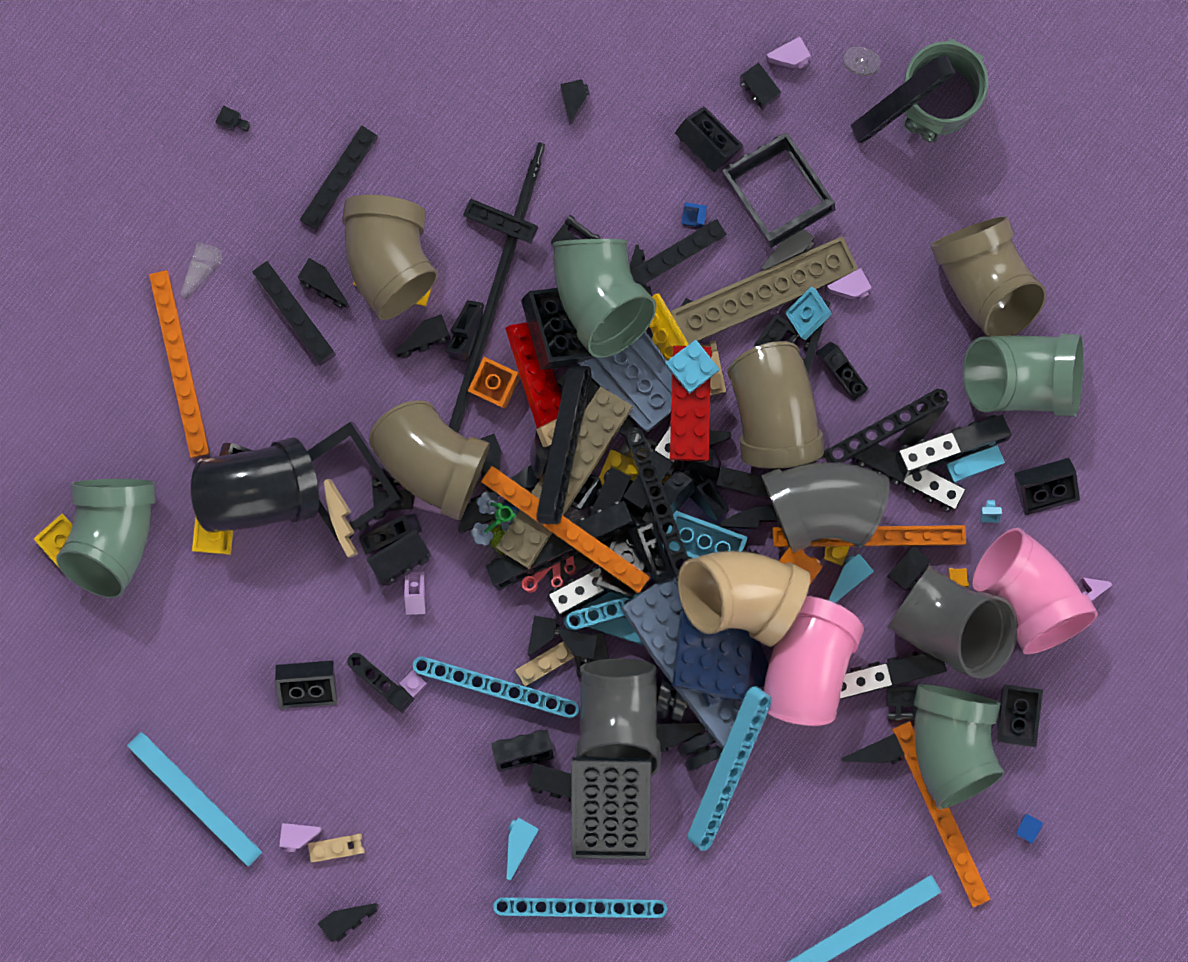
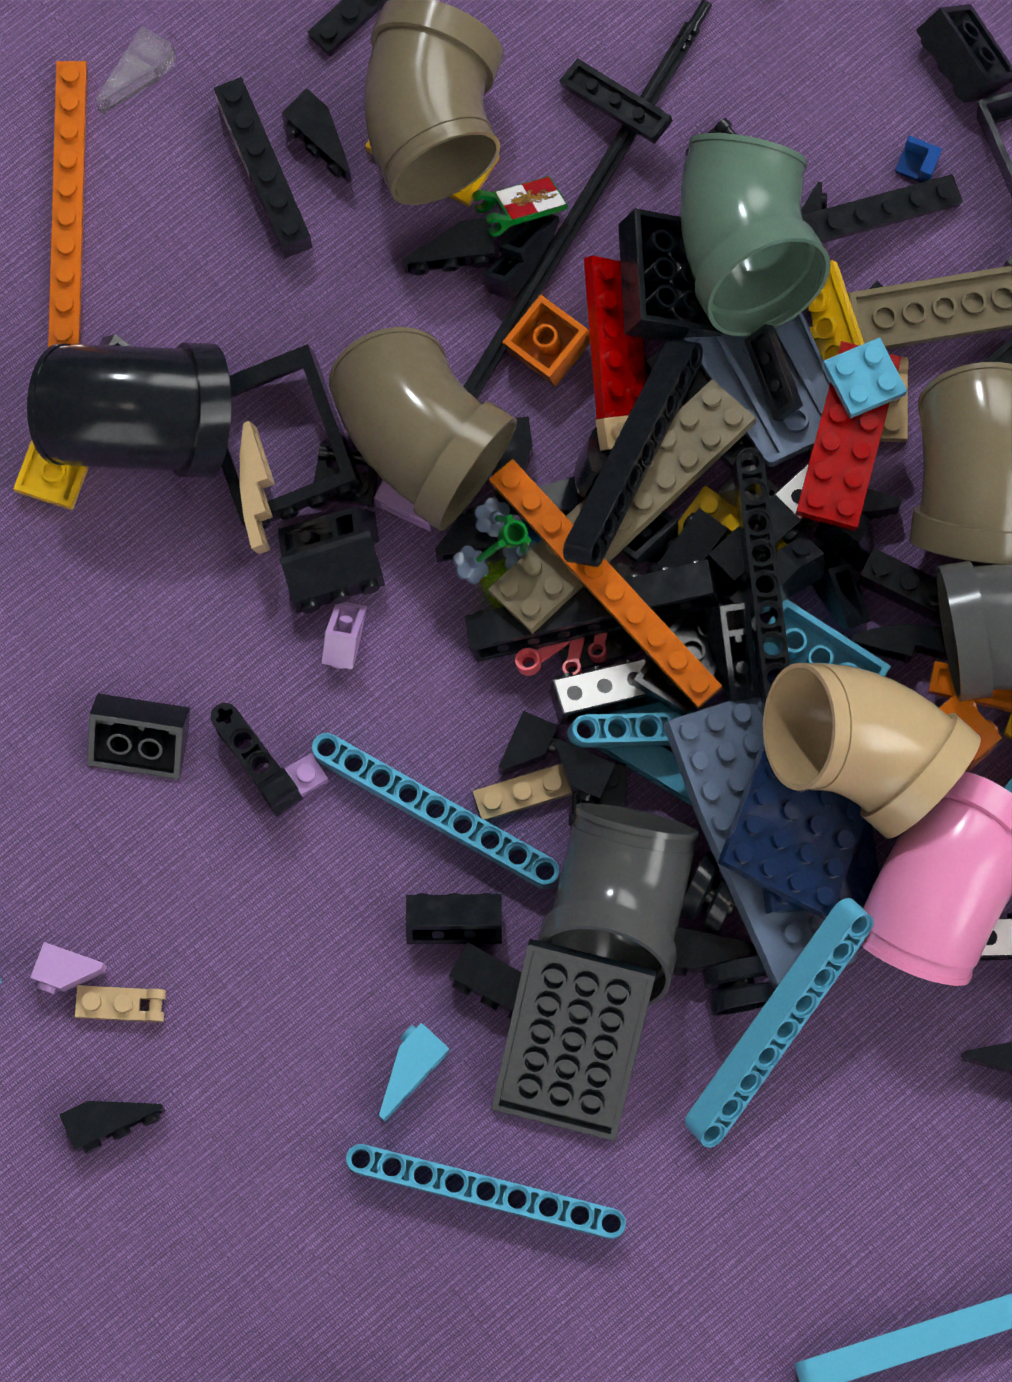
camera: 15 degrees right, 5 degrees down
(458, 299) = (520, 203): none -> flag
(636, 374) = (773, 372): none -> black plate

